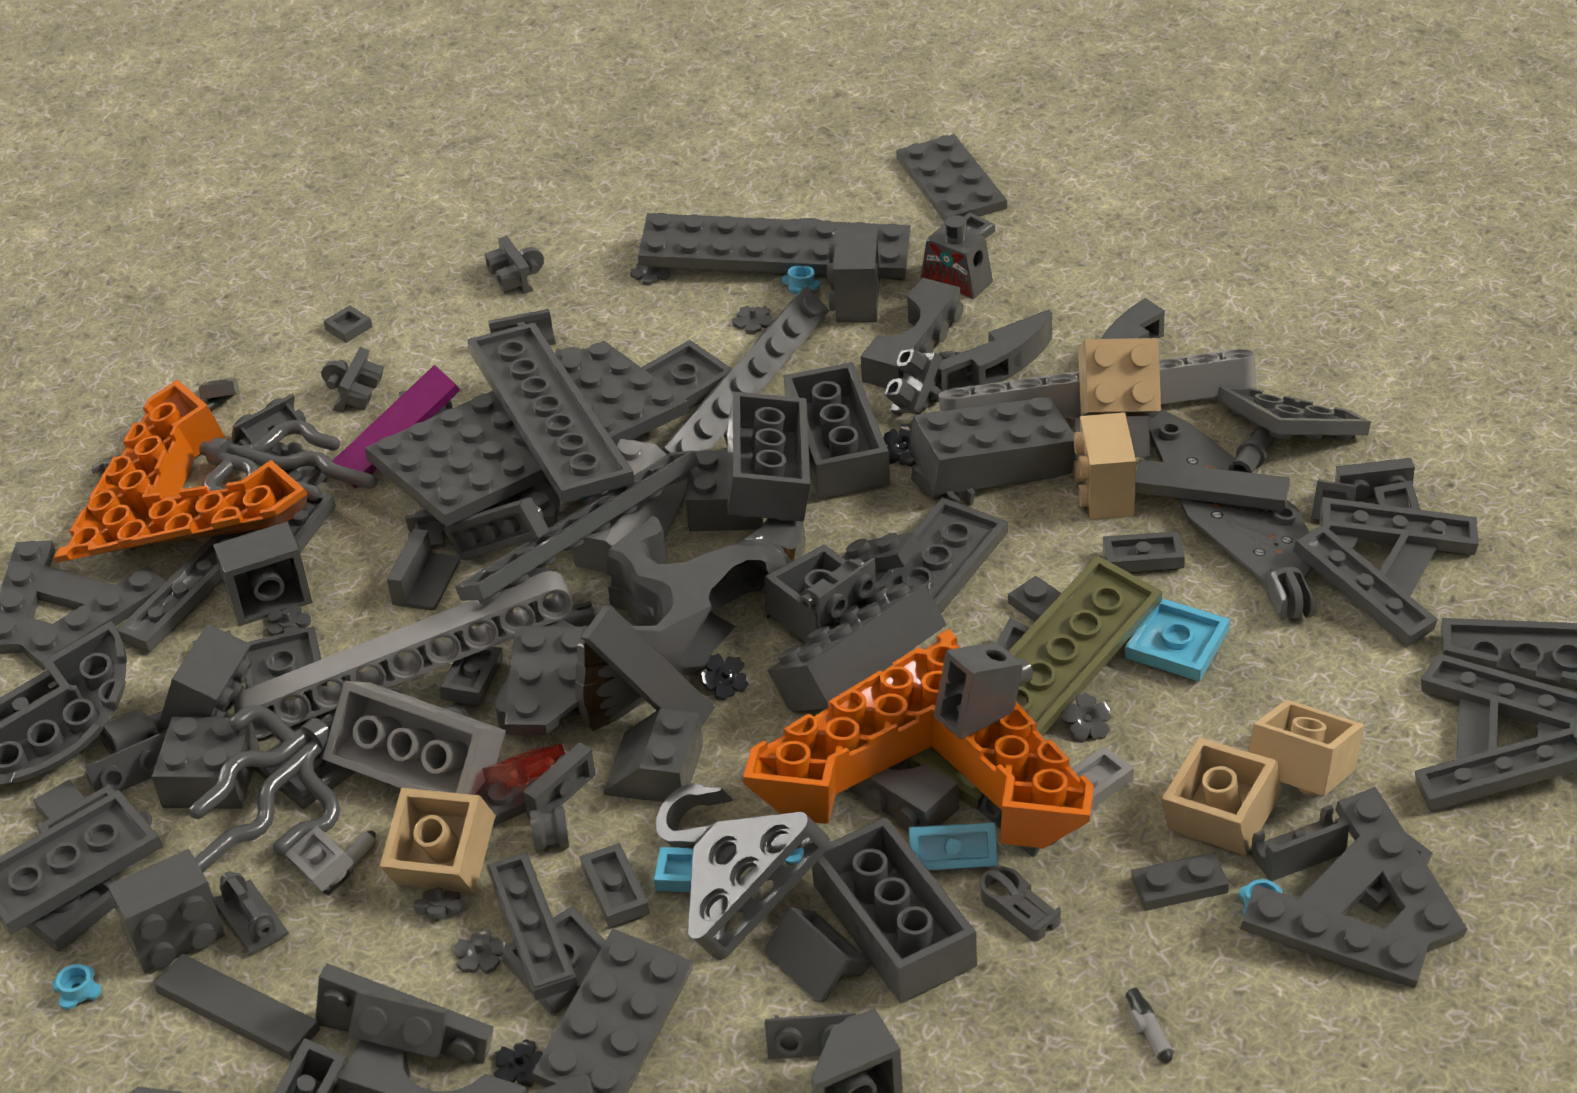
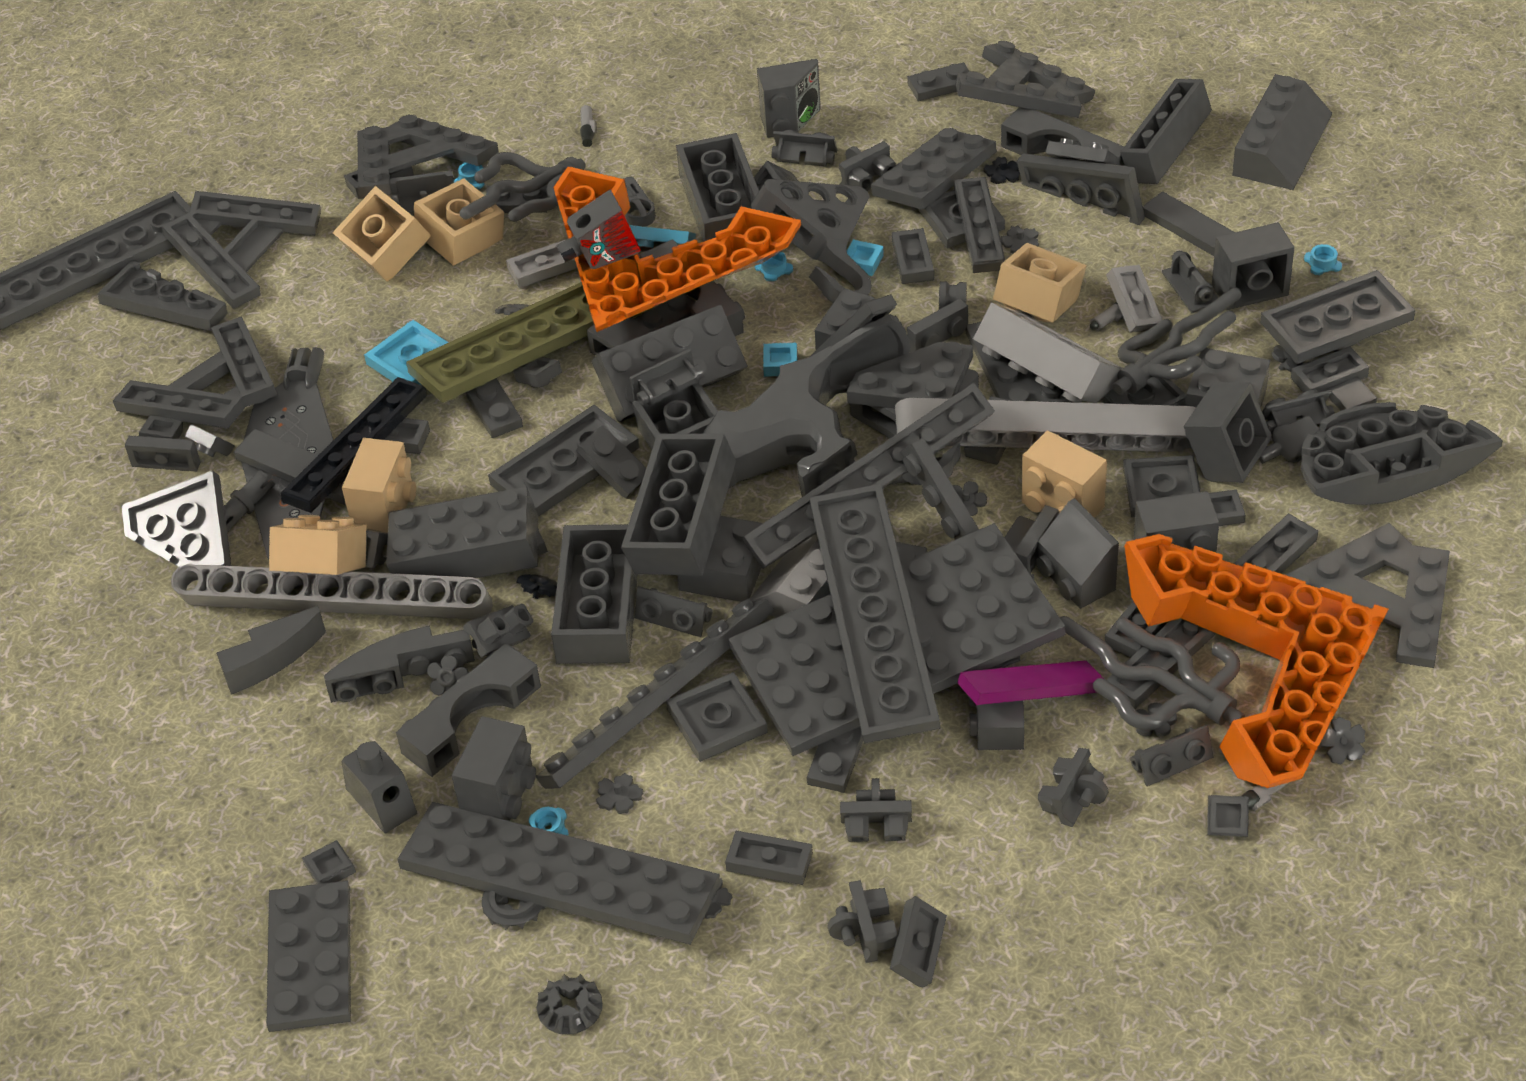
camera: 165 degrees left, 5 degrees up
(347, 324) = (1074, 893): dark grey tile -> none
(358, 546) = (1079, 555): none -> dark grey slope
(379, 598) = (1061, 471): none -> tan brick
(468, 263) = (918, 942): none -> dark grey plate
(517, 769) = (964, 323): clear red plate -> none
(605, 293) = (769, 857): none -> dark grey plate
(715, 1011) = (862, 166): none -> dark grey hips
(740, 191) = (568, 1019): none -> dark grey gear
(740, 715) = (776, 355): none -> medium azure plate
(1139, 898) = (542, 177): none -> dark grey plant
(1163, 501) = (334, 462): none -> black tile

